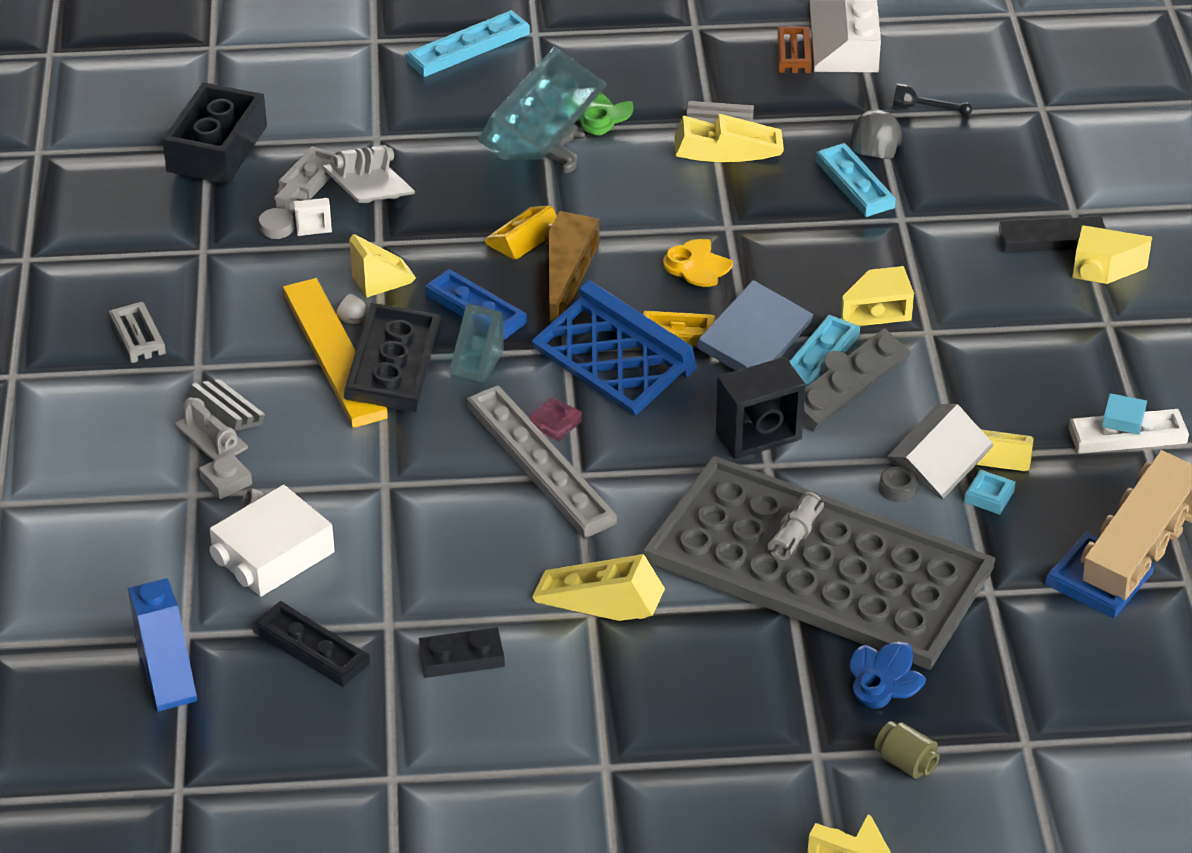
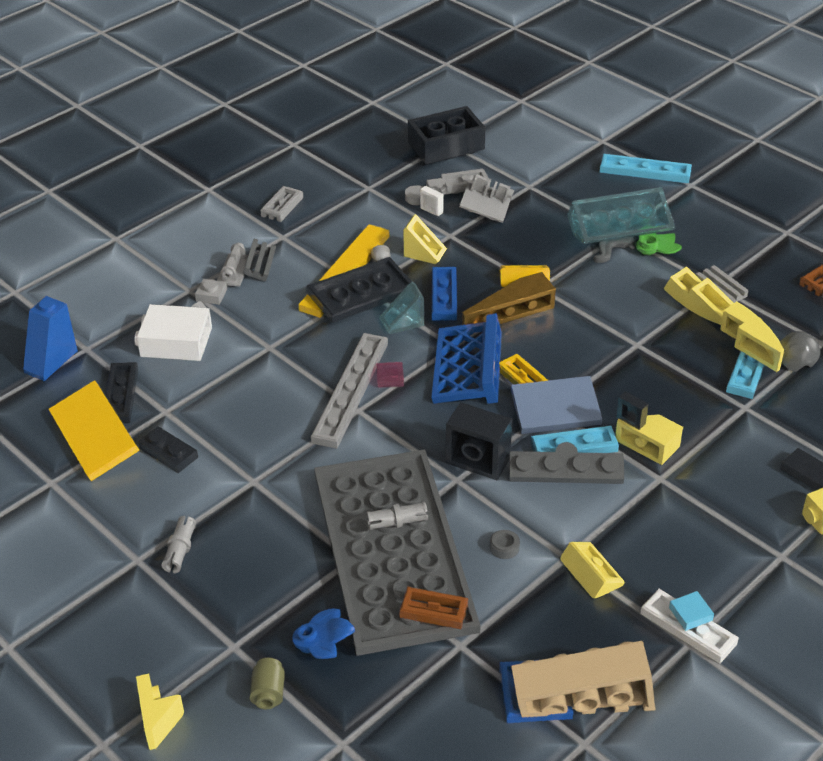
camera: 50 degrees right, 0 degrees up
(359, 693) = (93, 430): none -> yellow tile
(607, 588) = (267, 473): light yellow slope -> none
(628, 717) = (179, 544): none -> light grey pin
(696, 263) = (585, 349): yellow plate -> none
(835, 143) = (752, 335): none -> light yellow slope
(856, 278) = (632, 410): none -> black plate
(942, 448) = (546, 544): slope -> none
(948, 576) = (433, 612): none -> dark orange tile
(989, 492) = (548, 590): medium azure tile -> none

